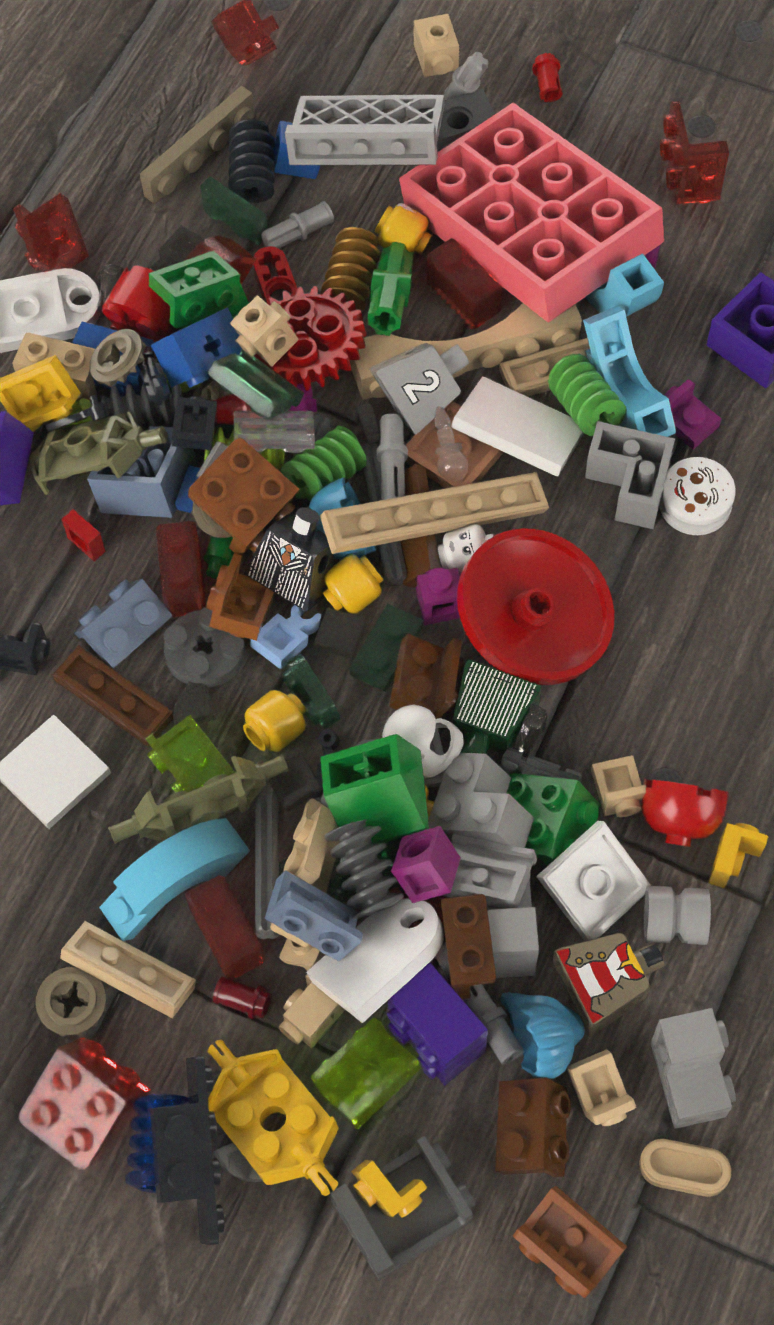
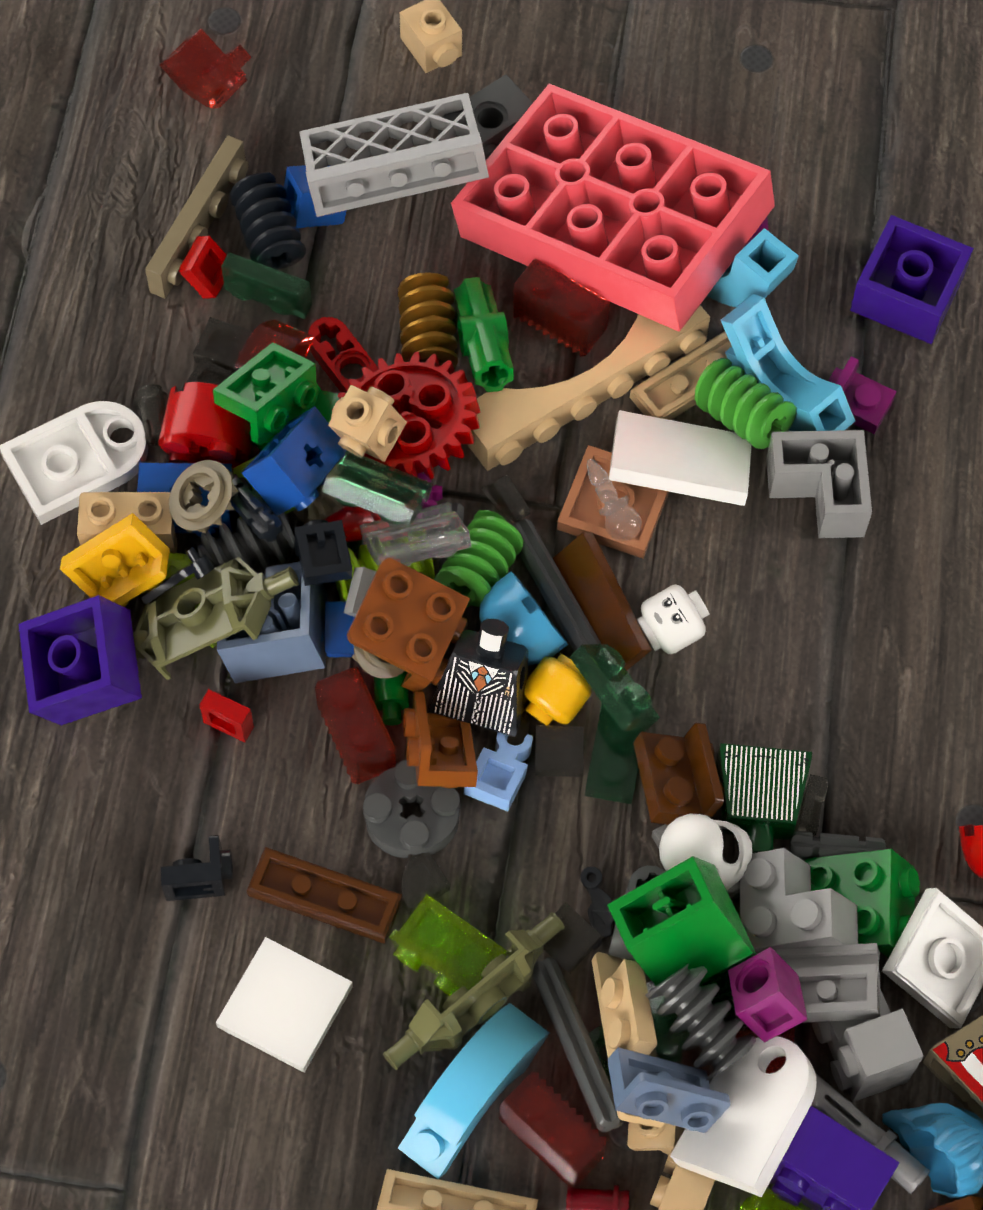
camera: 20 degrees left, 0 degrees up
(51, 235) = (62, 367): clear red bracket -> none
(123, 622) = (306, 804): sand blue bracket -> none
(186, 184) = (203, 267): none -> red tile
(274, 721) = (524, 874): yellow head -> none
(298, 226) = (345, 285): light grey axle -> none
(318, 704) = (566, 840): clear green plate -> none
(392, 455) = (552, 530): light grey pin -> none
(398, 592) = (613, 685): none -> clear green plate
(403, 226) = (470, 257): yellow head -> none
(420, 382) = (556, 437): light grey torso -> none
(433, 512) = (624, 585): tan tile -> none
(437, 588) = (662, 674): magenta brick -> none
(467, 77) = (486, 66): light grey axle -> none
(468, 942) = (842, 1070): reddish brown bracket -> none
(535, 606) = (772, 662): red dish -> none
(546, 69) = (564, 32): red pin -> none
(618, 786) = (930, 842): tan bracket -> none
(694, 170) = (767, 116): clear red bracket -> none
(697, 496) = (904, 486): white head -> none

